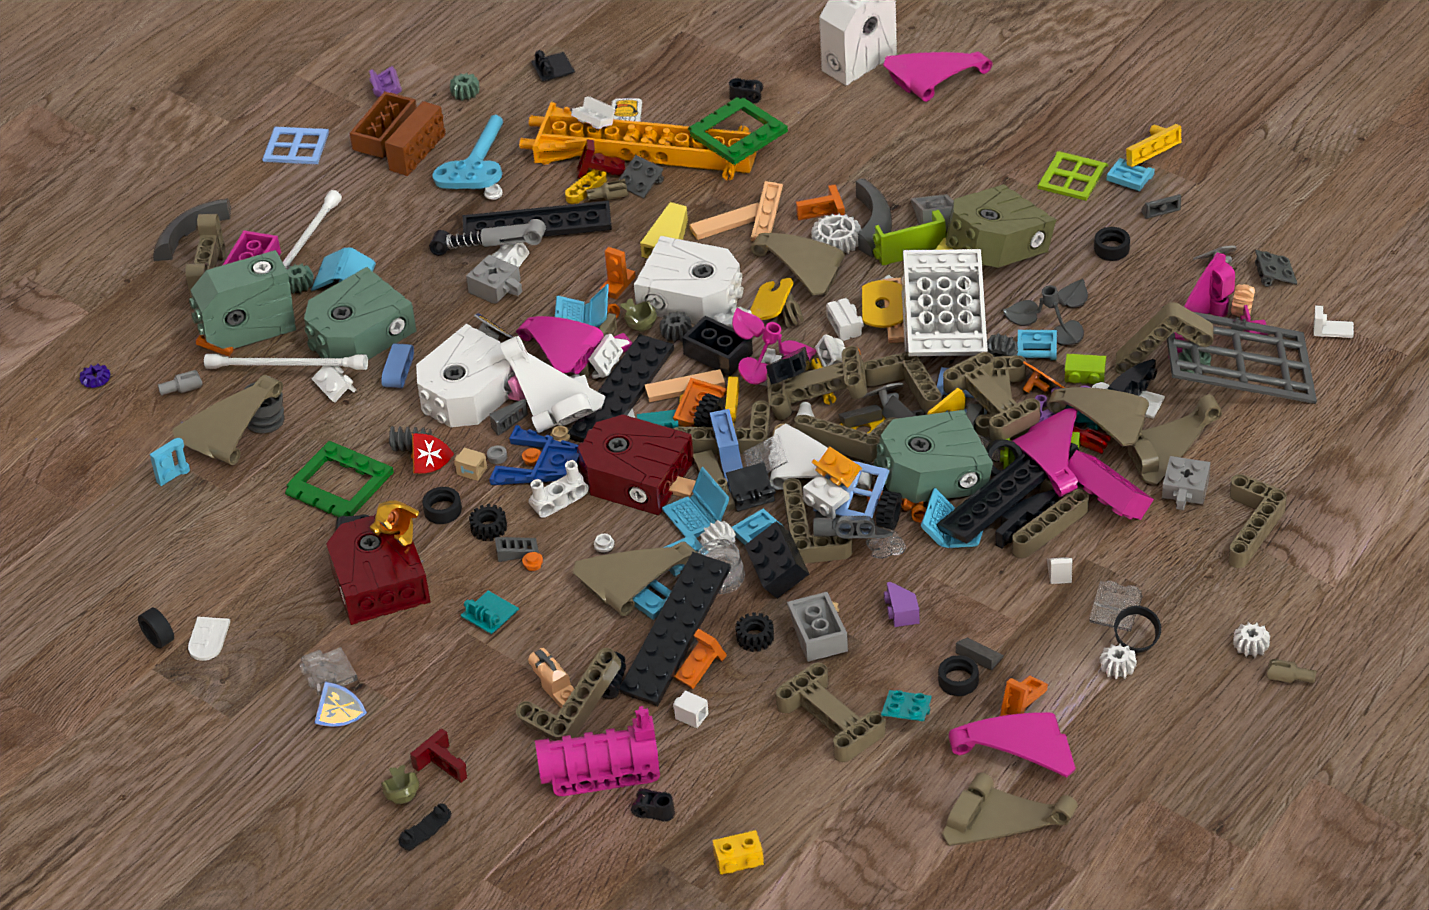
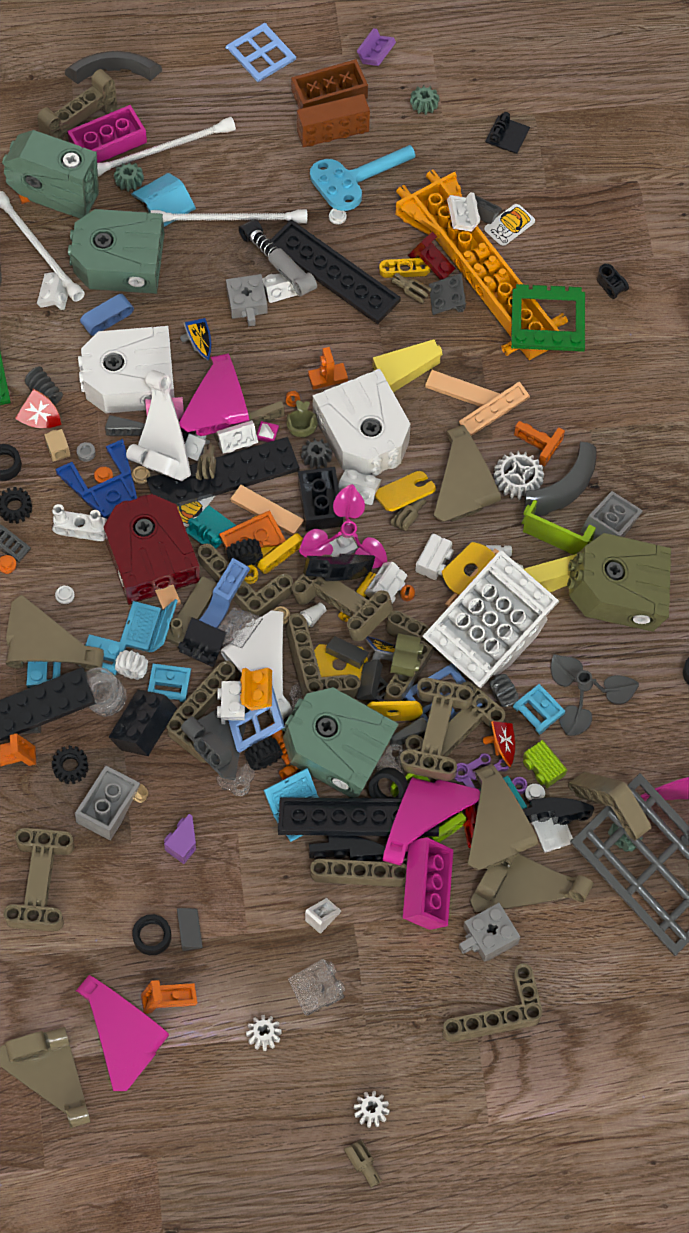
camera: 40 degrees right, 20 degrees up
(465, 209) = (298, 216): none -> white hose
(591, 313) = (266, 381): medium azure piece -> none
(606, 385) = (206, 463): none -> dark tan arm
(907, 705) = (85, 926): teal hinge -> none
(912, 371) = (406, 654): none -> olive brick
(1143, 611) = (284, 1028): black tyre -> none

